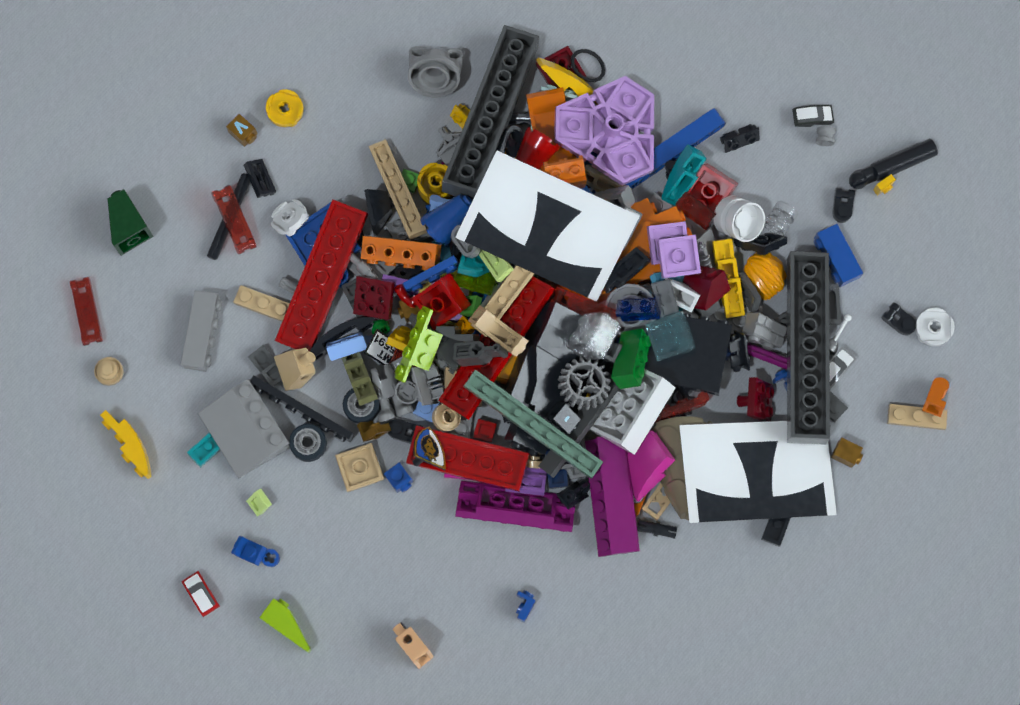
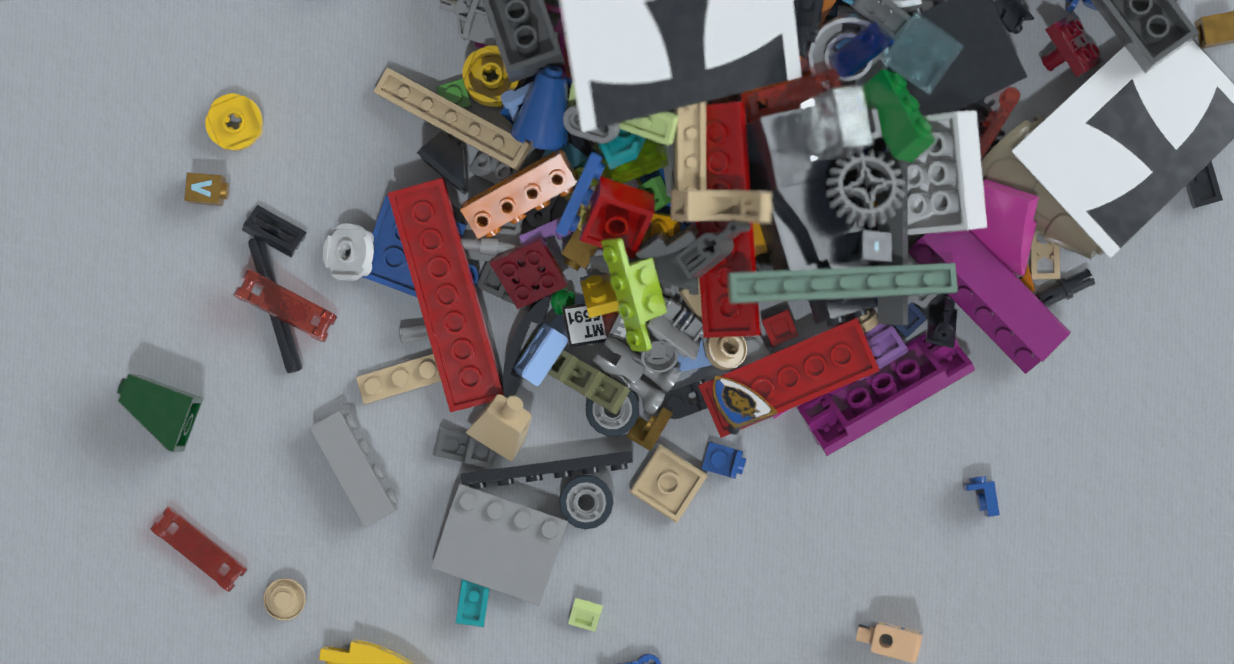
camera: 35 degrees left, 10 degrees up
(404, 296) = (565, 243): red arm -> none

